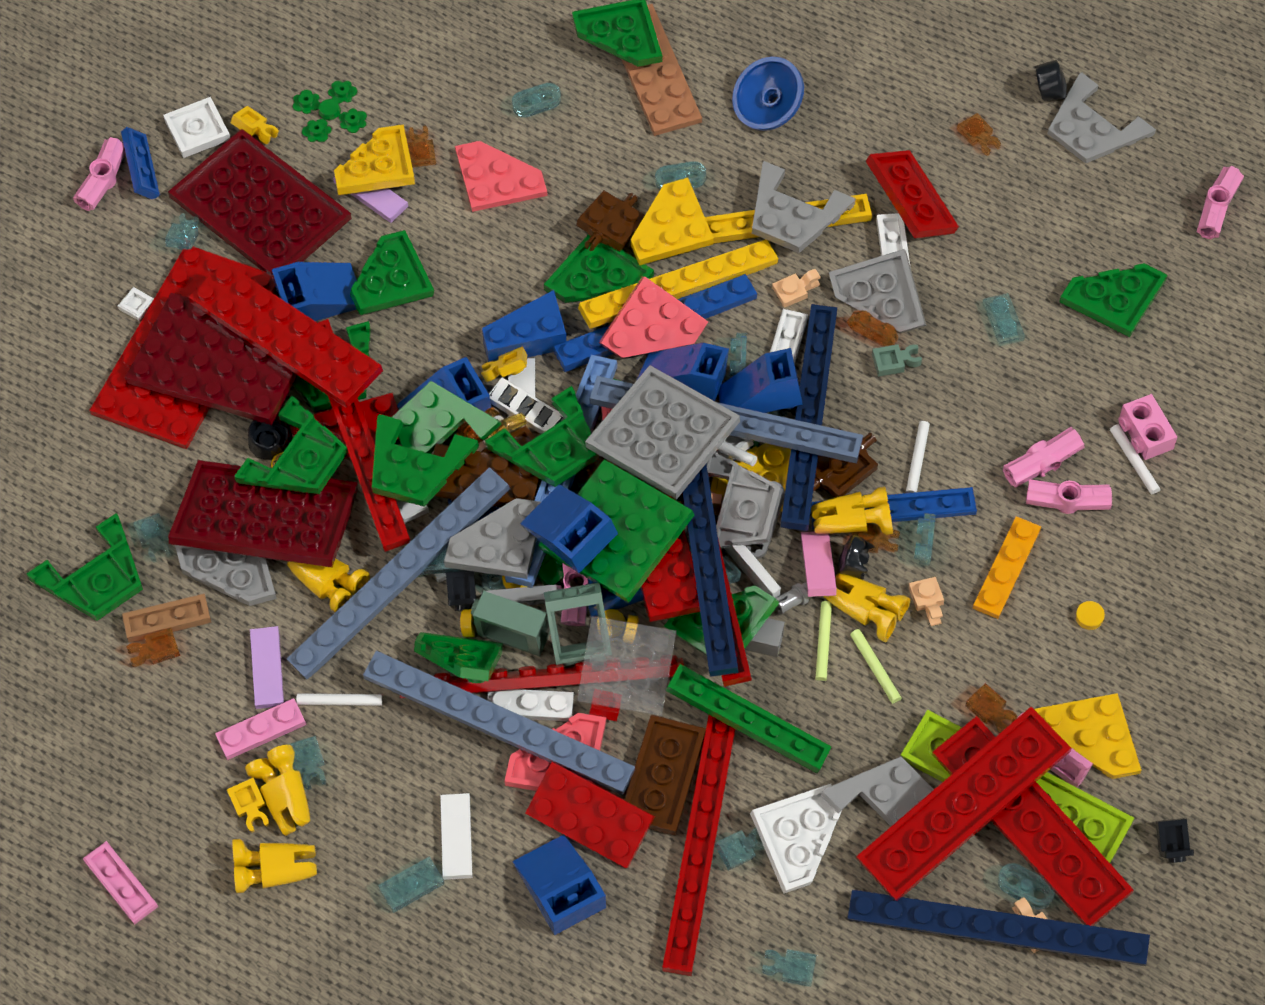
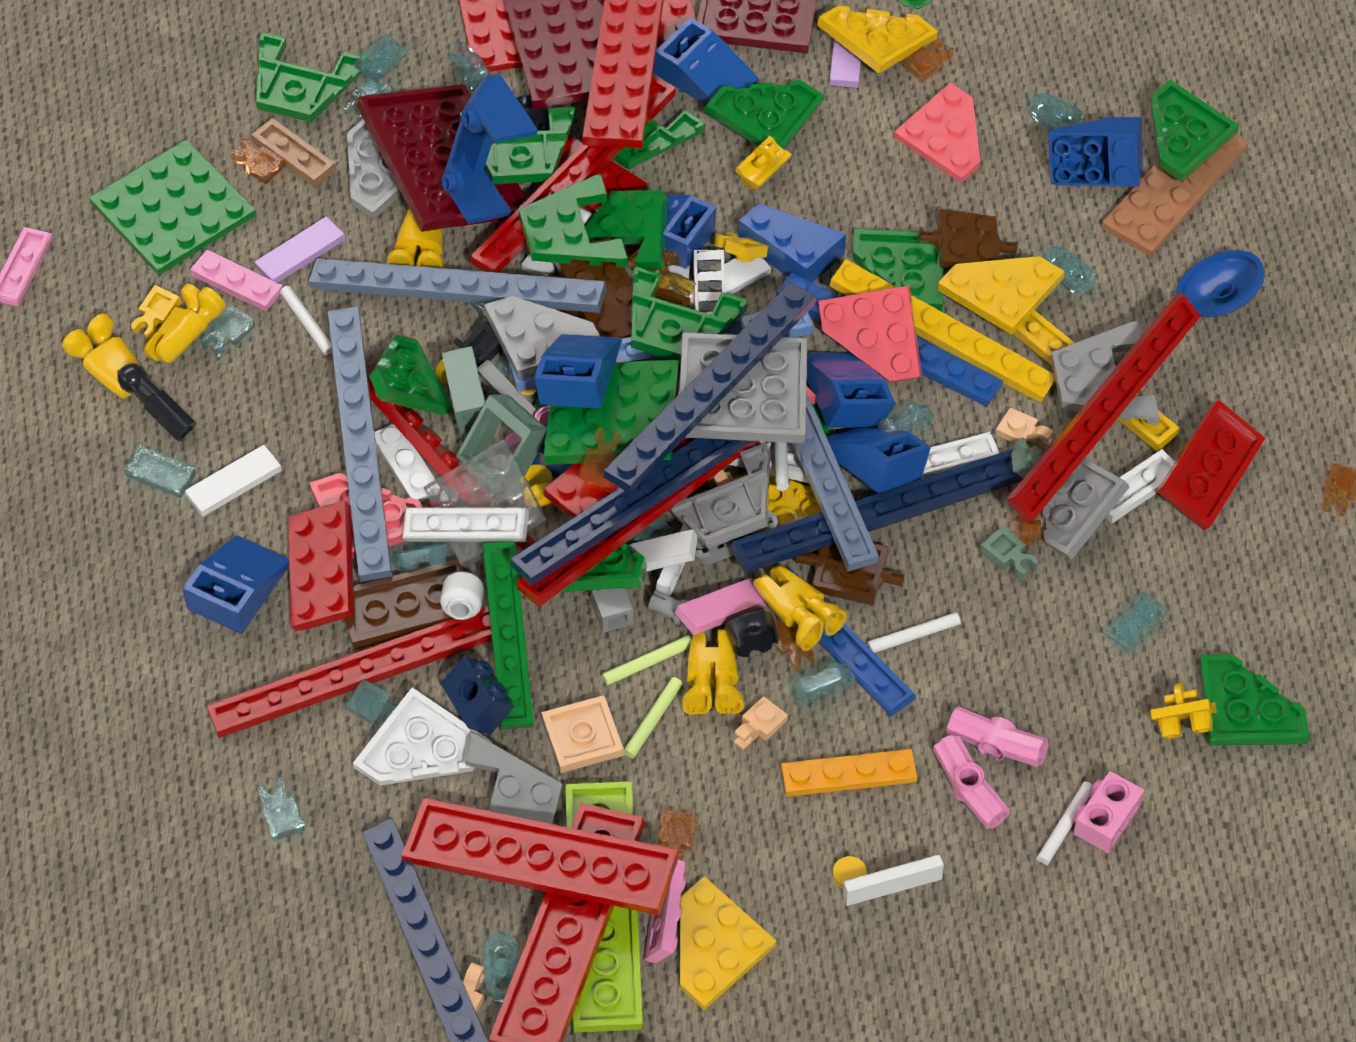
camera: 55 degrees right, 5 degrees down
(126, 503) = (381, 58): none -> clear light blue plate
(148, 736) = (172, 207): none -> plate
(186, 447) = (470, 67): none -> clear light blue plate
(296, 444) = (488, 117): none -> blue windscreen
(348, 849) = (157, 402): none -> black piece
(439, 306) = (762, 164): none -> yellow hips
(603, 92) = (1097, 153): none -> blue slope
(630, 739) = (410, 559): none -> clear light blue plate
(637, 689) = (465, 524): none -> white tile
(656, 451) = (709, 388): none -> dark blue plate
(666, 562) = (598, 460): none -> clear orange plate
(695, 729) = (462, 595): none -> white head
(752, 567) = (667, 549): none -> white tile
(772, 776) = (477, 695): none -> dark blue brick
(831, 225) = (1103, 408): none -> red plate
(834, 300) = (1024, 457): none -> sand green plate
(861, 719) = (582, 734): none -> light nougat plate
(1110, 324) = (1169, 717): none -> yellow hips
(1117, 590) = (893, 880): none -> white tile

